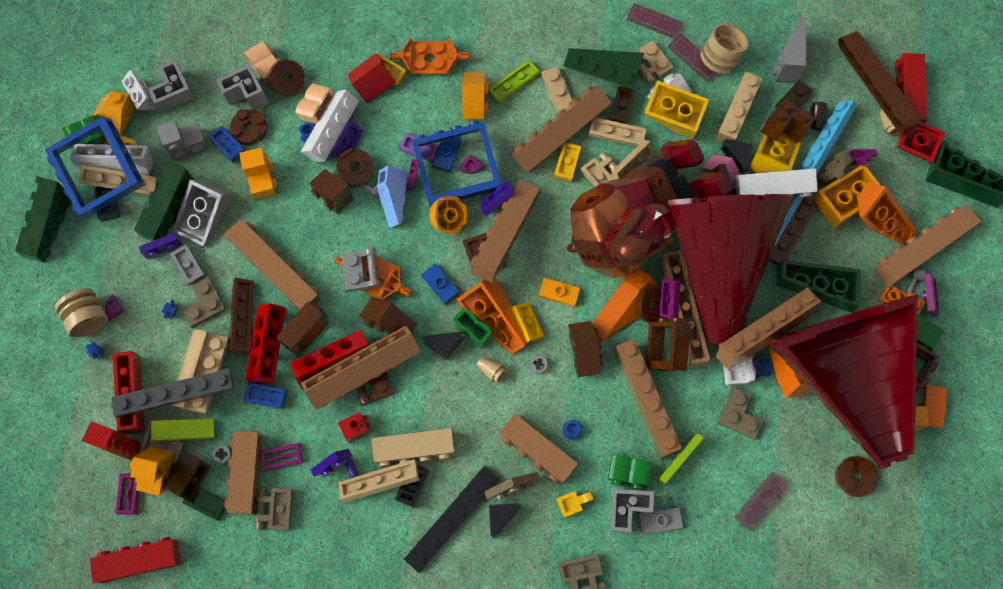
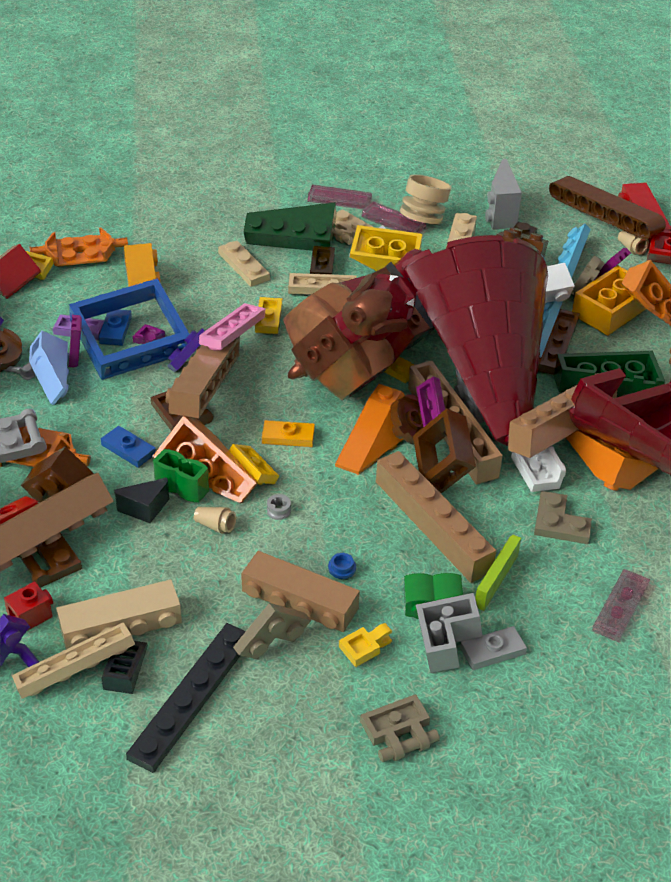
camera: 15 degrees left, 30 degrees down
(448, 214) = (126, 371): light orange cylinder -> none
(500, 516) = (264, 673): black slope -> none
(514, 81) = (186, 260): lime tile -> none
(534, 184) = (231, 326): none -> bright pink plate
(561, 128) = (254, 282): medium nougat brick -> none
(585, 348) = (338, 475): reddish brown brick -> none
(765, 365) = (573, 469): blue plate -> none
(819, 111) = (552, 250): dark brown cone -> none

